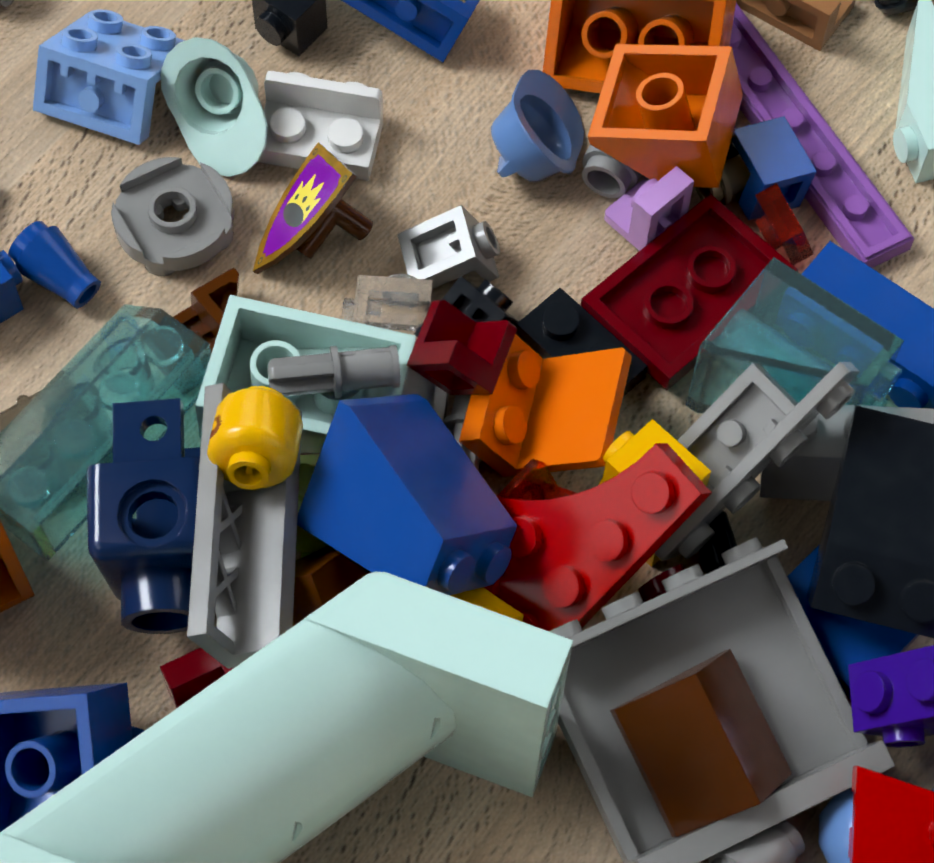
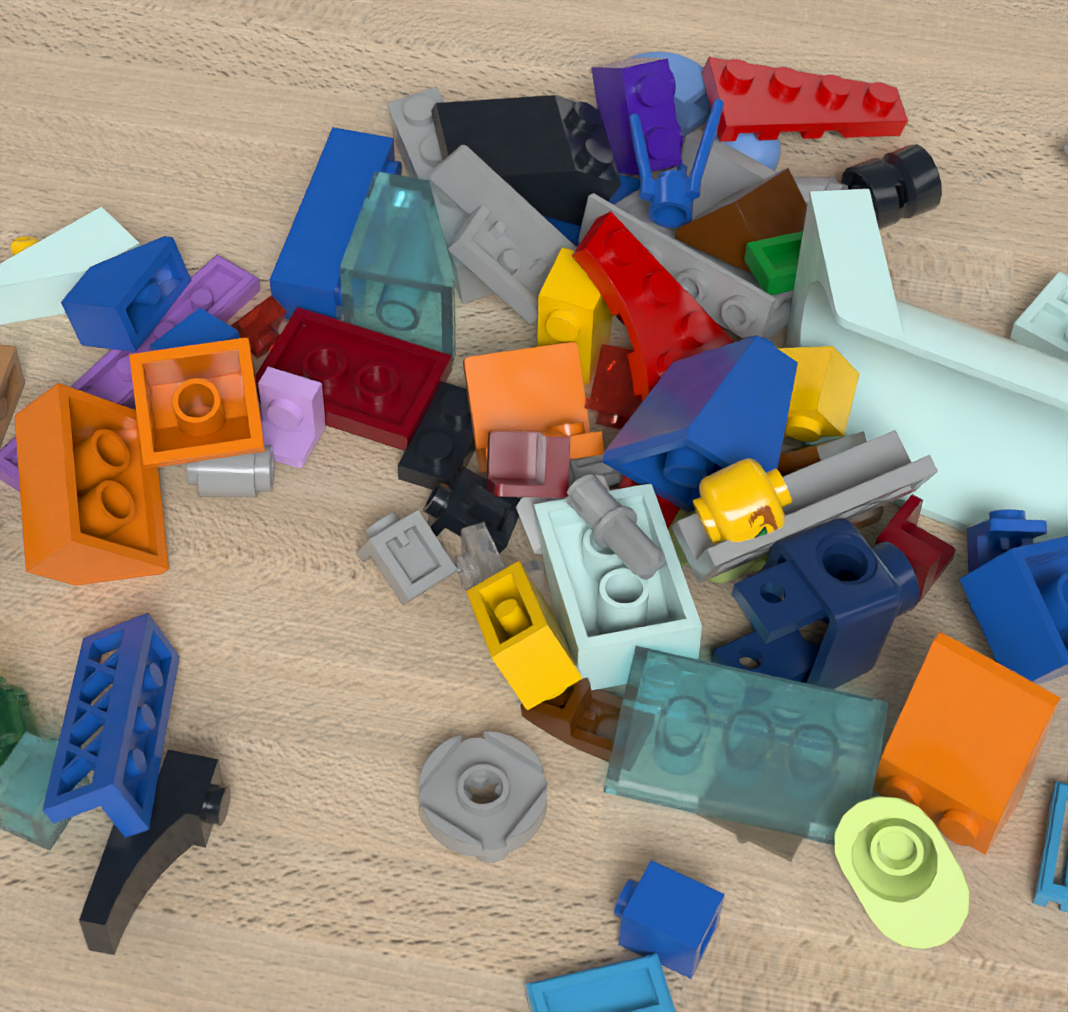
camera: 115 degrees left, 10 degrees down
(51, 262) = (596, 869): blue cone -> none
(103, 74) = (337, 928): light blue bracket -> none
(215, 105) = (345, 798): light aqua piece -> none
(284, 267) = (523, 636): none -> yellow brick
(311, 211) = (426, 668): shield -> none
(315, 110) = (319, 721): white bracket -> none
(538, 130) = (250, 537): medium blue piece -> none
(597, 717) = (775, 262): none -> green bracket
(777, 662) = (673, 191): none -> blue plant
(864, 126) = (126, 295): none -> blue slope

